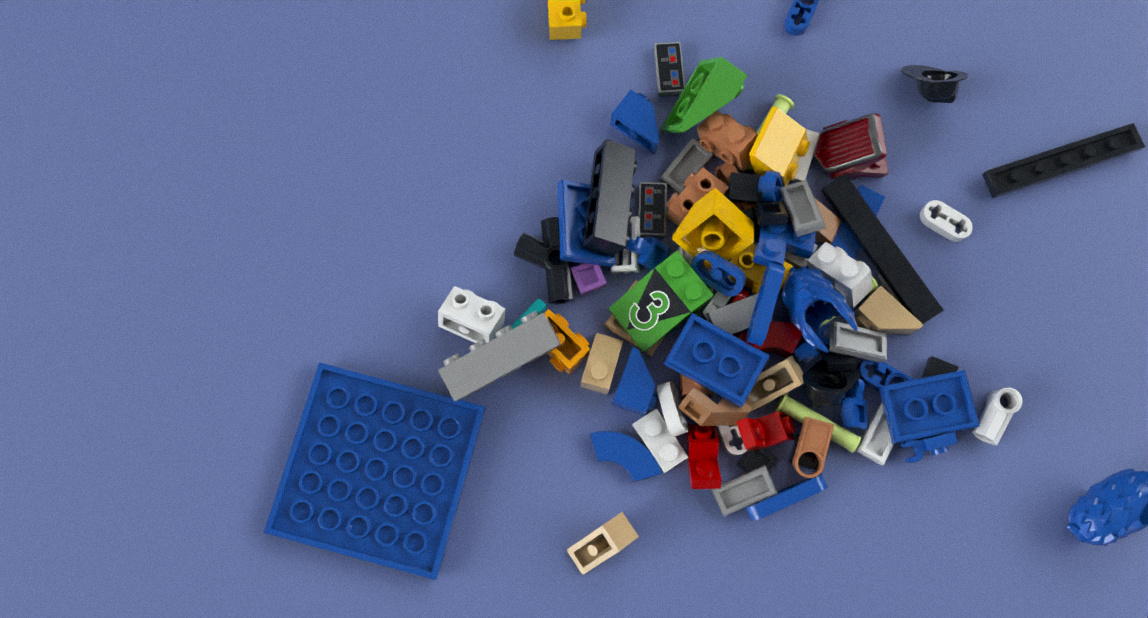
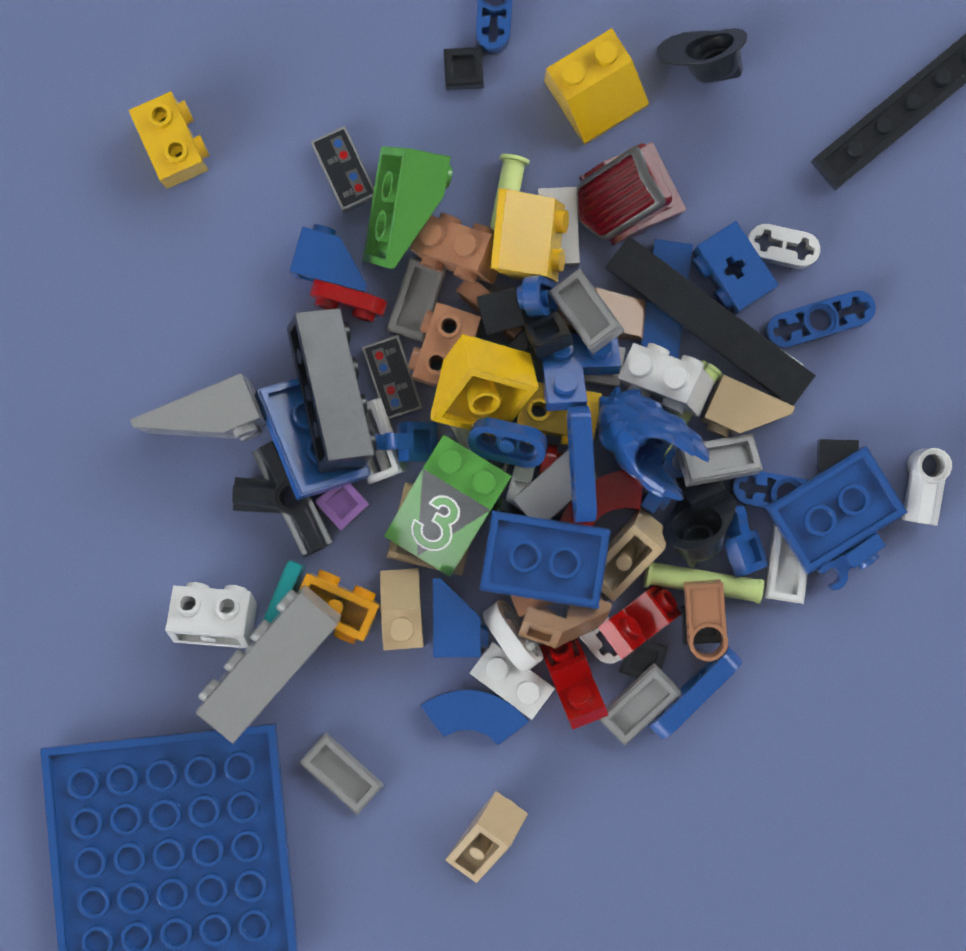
camera: 20 degrees left, 10 degrees up
(517, 460) = (341, 773): none -> light grey tile
(521, 182) = (216, 412): none -> light grey slope
(650, 154) = (363, 305): none -> red plate
(770, 36) = (463, 68): none -> black tile
(855, 75) = (596, 86): none -> yellow slope
(909, 221) = (733, 248): none -> blue brick
(967, 273) = (843, 302): none -> blue beam

